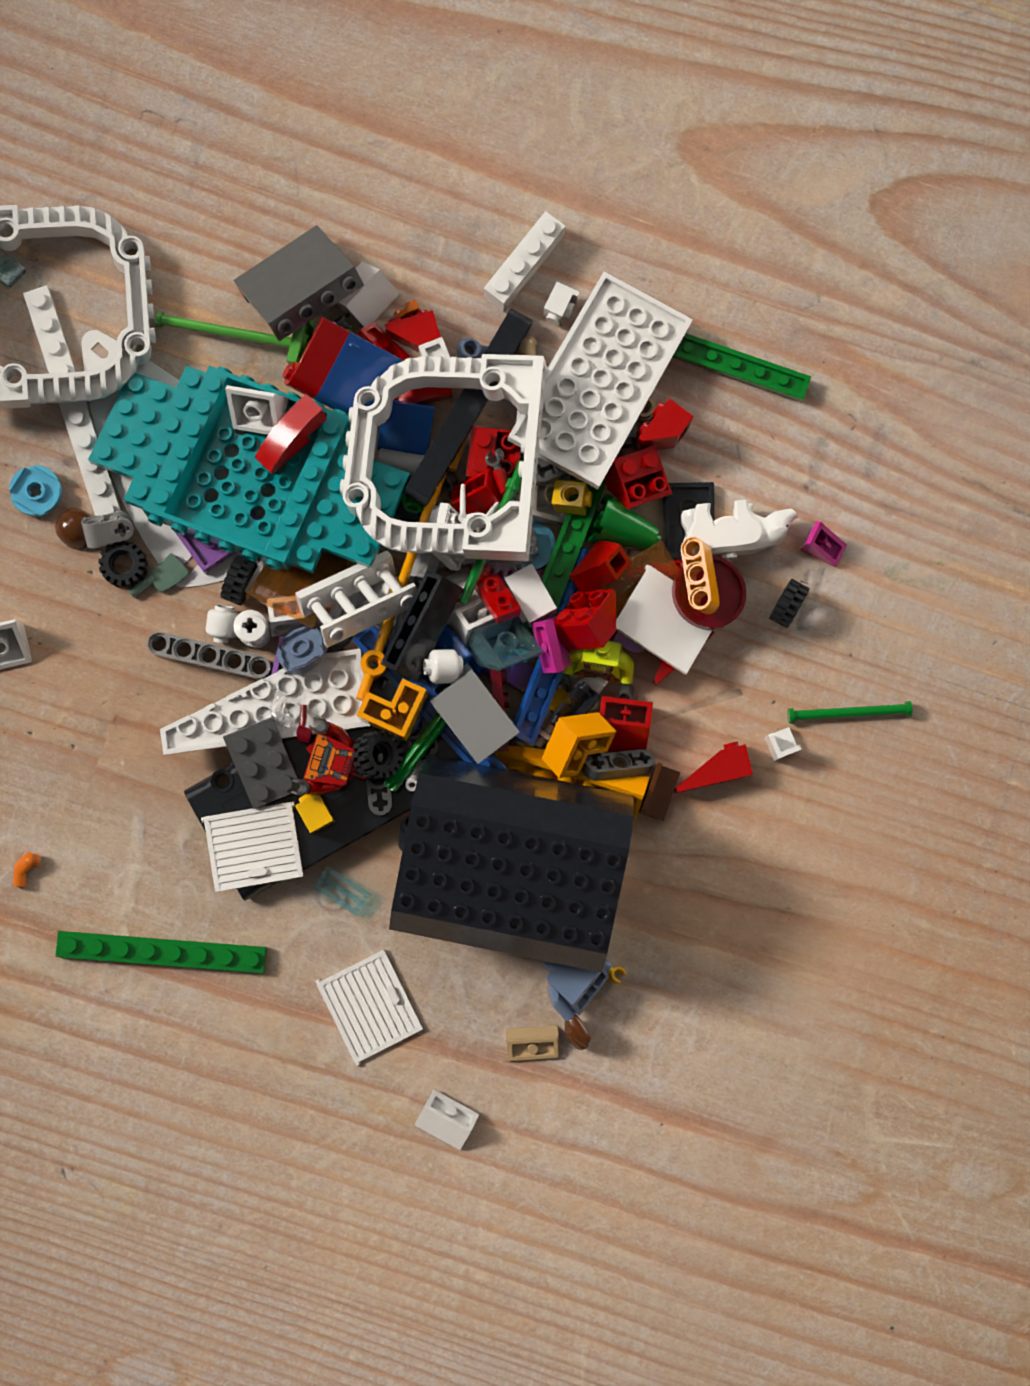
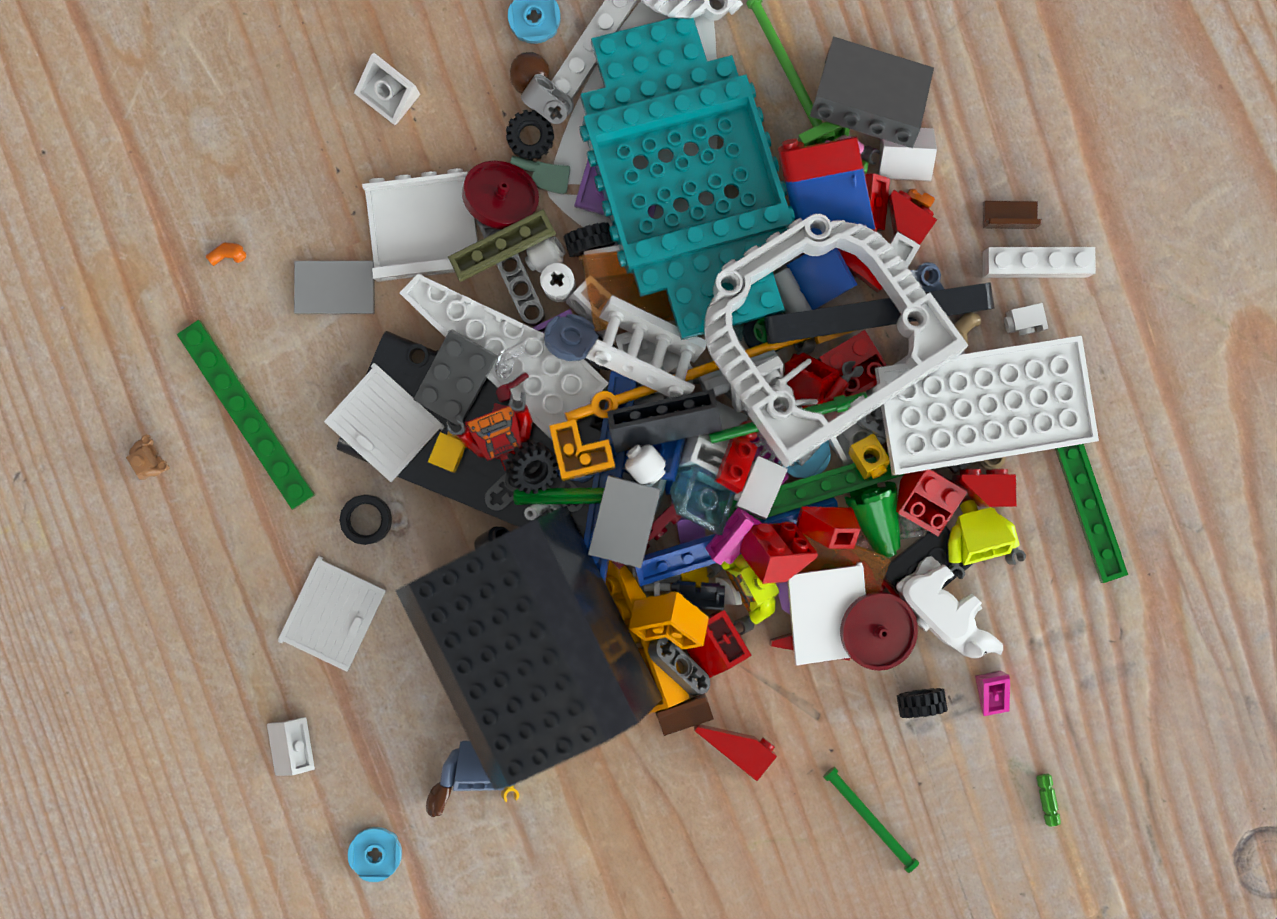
camera: 60 degrees right, 5 degrees up
(118, 805) = (334, 287): none -> light grey tile
(125, 700) = (417, 224): none -> white panel
(132, 1059) = (144, 459): none -> medium nougat piece
(150, 621) = (499, 194): none -> dark red piece
(190, 648) = (501, 245): none -> olive brick
(255, 409) = (738, 143): white slope -> none
(290, 434) = (739, 187): slope -> none
(297, 918) = (347, 528): none -> black tyre
(323, 878) = (416, 516): clear light blue tile -> none
(472, 255) = (1010, 215): none -> reddish brown panel
(532, 1043) = (404, 767): tan slope -> none
(582, 1133) = (364, 842): none -> medium azure plate
(650, 510) = (910, 529): none -> clear wheel
(692, 566) = (887, 602): light orange beam -> none
(698, 461) = (980, 537): none -> neon yellow torso
(781, 744) = (801, 785): white panel -> none
(937, 567) = (1048, 800): none -> bright green axle

